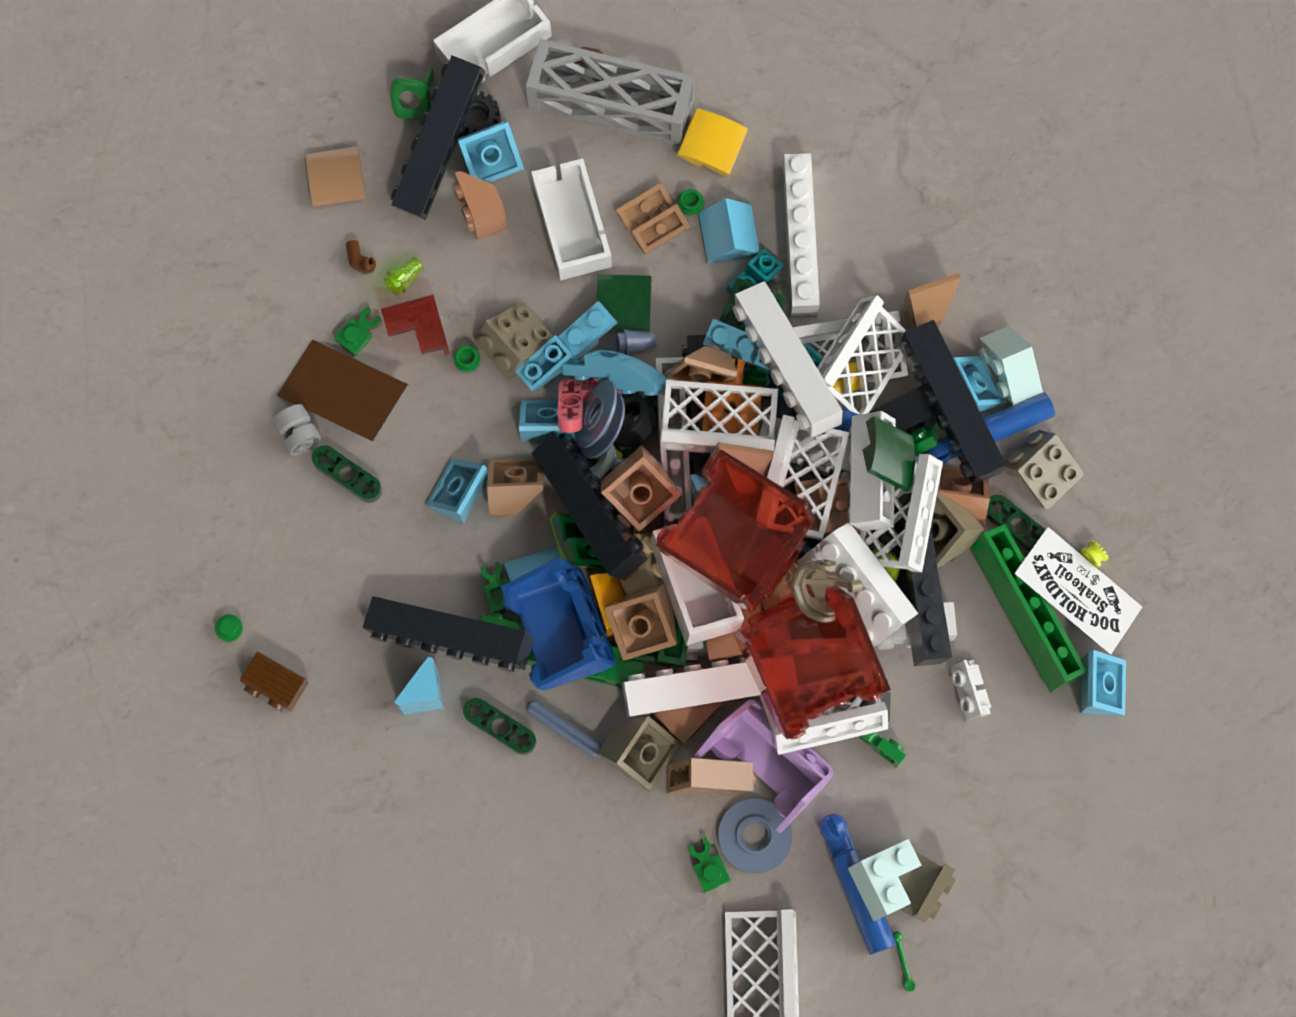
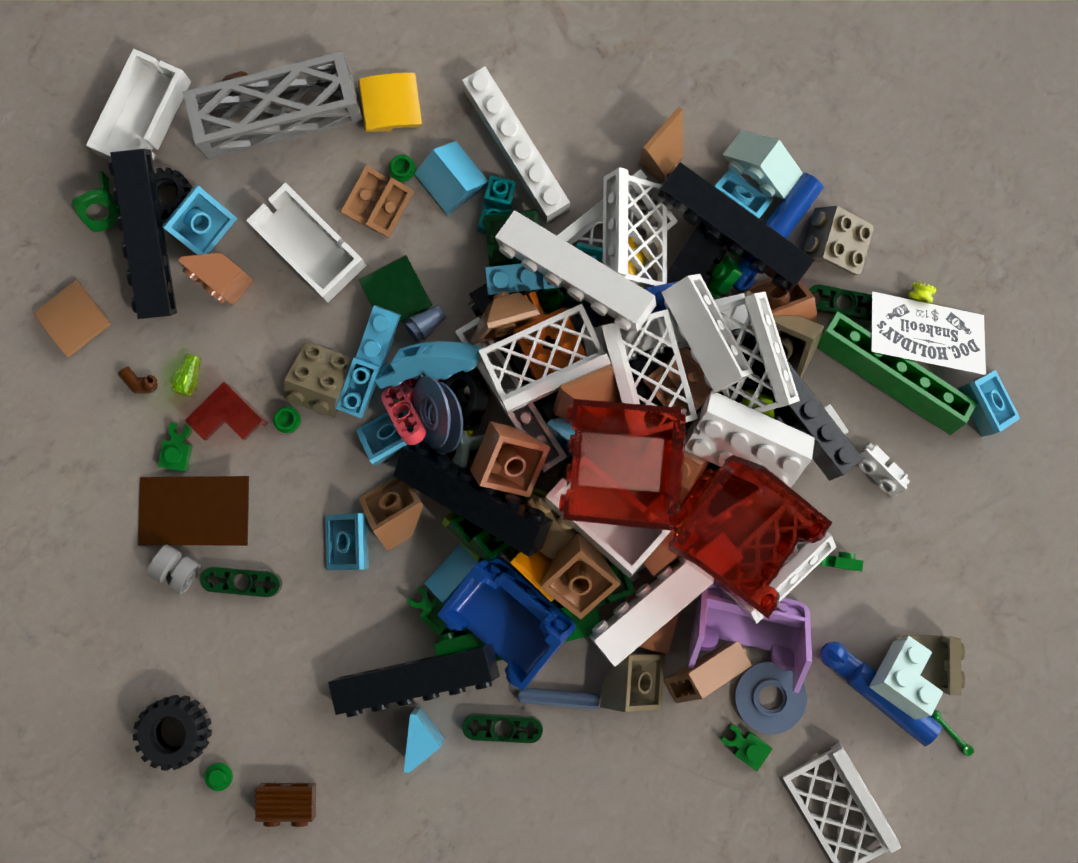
camera: 30 degrees left, 10 degrees up
(198, 550) = (150, 736): none -> black tyre
(816, 606) = (727, 486): dark tan helmet -> none
(890, 454) = (720, 312): dark green slope -> none

